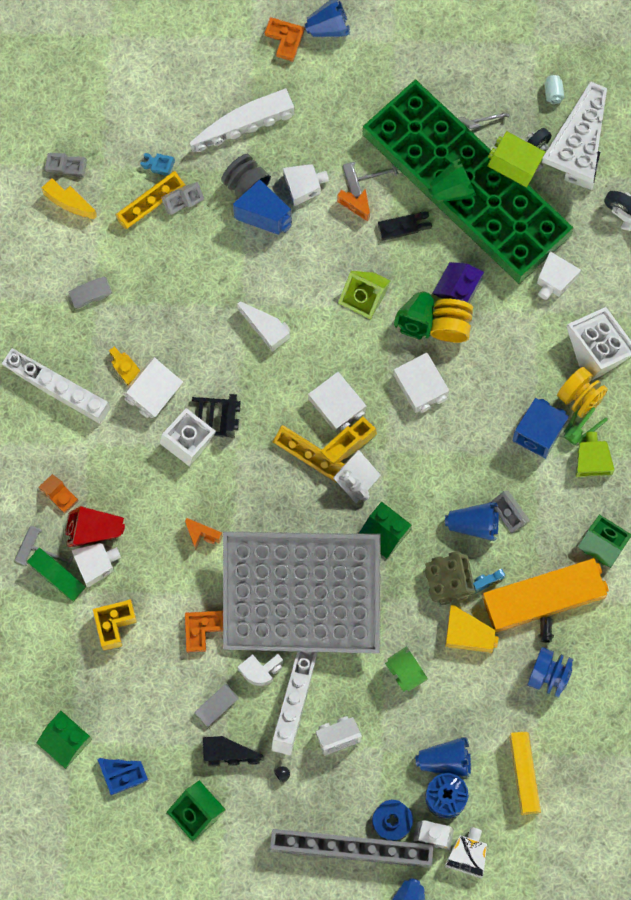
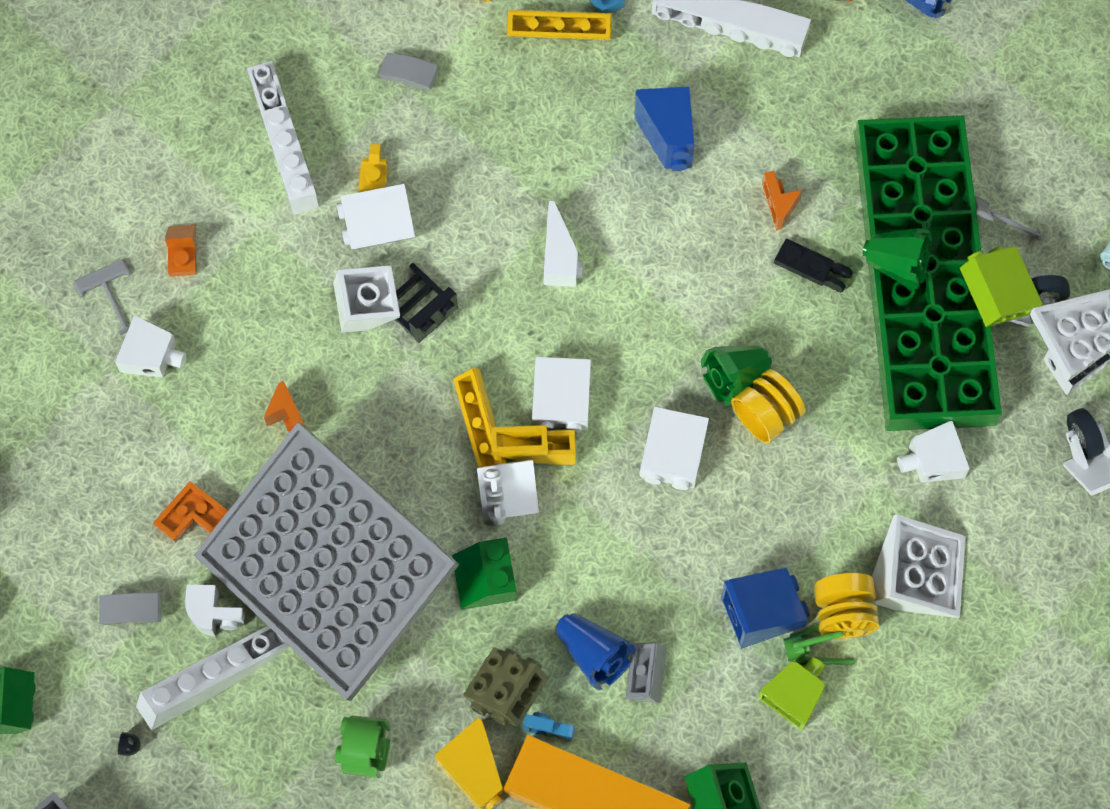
camera: 40 degrees right, 5 degrees down
(55, 574) = (97, 328): green slope -> none
(92, 526) = (180, 311): red slope -> none
(109, 619) = (100, 423): yellow brick -> none
(182, 197) = (595, 49): light grey slope -> none
(223, 750) = (90, 662): black slope -> none
(243, 175) = (682, 68): dark grey wheel -> none
(303, 182) = (741, 133): white torso -> none
(339, 735) = (223, 755): white slope -> none
(352, 179) = (800, 174): light grey piece -> none
(364, 292) = (700, 300): lime slope -> none
(459, 282) = (817, 375): dark purple slope -> none

